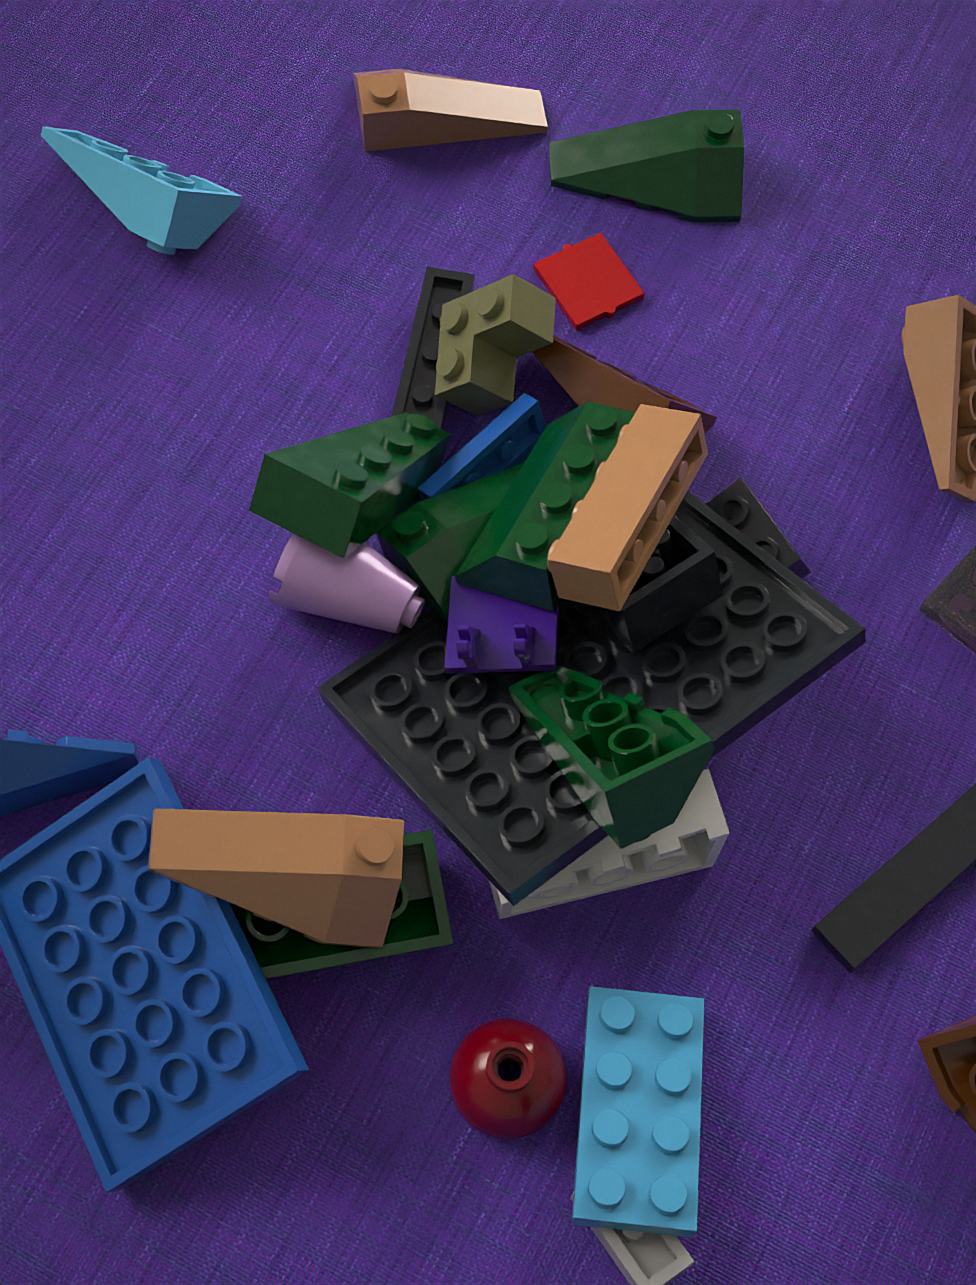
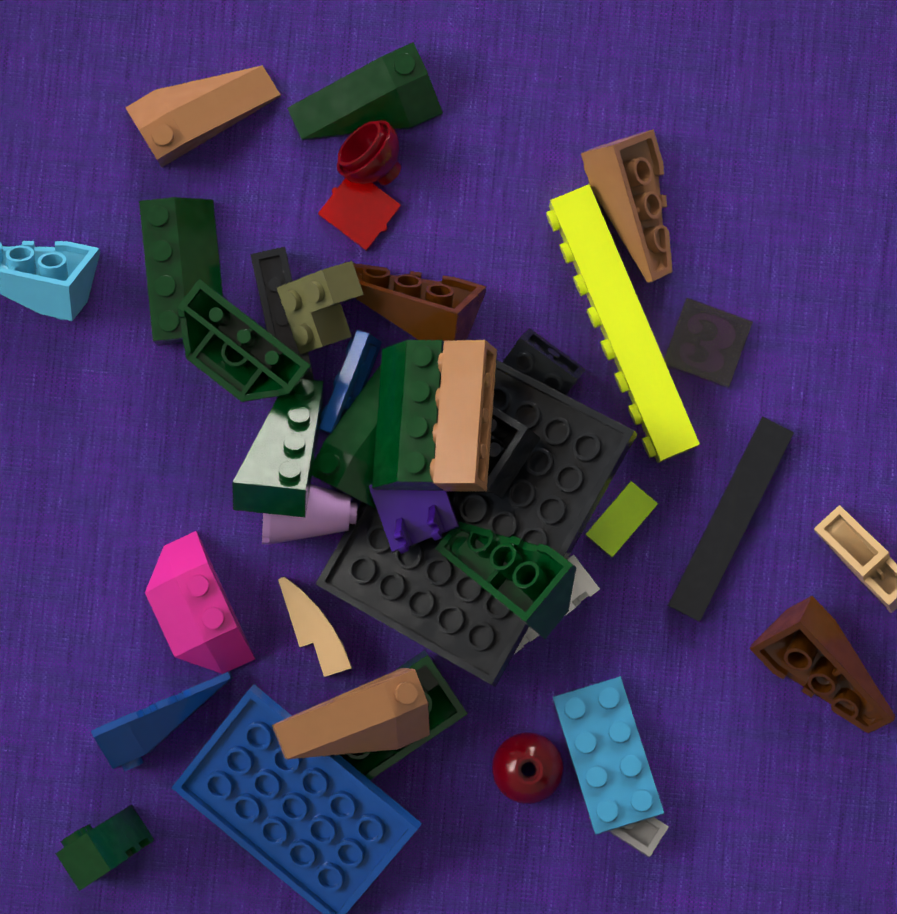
camera: 20 degrees left, 20 degrees up
(137, 658) = (195, 608): none -> dark pink wedge
(285, 742) = (314, 628): none -> tan slope
(330, 255) = (178, 252): none -> dark green slope
(355, 339) = (236, 348): none -> dark green wedge
(633, 216) = (370, 154): none -> dark red piece
(788, 781) = (621, 519): none -> lime tile
(886, 539) = (623, 324): none -> neon yellow brick

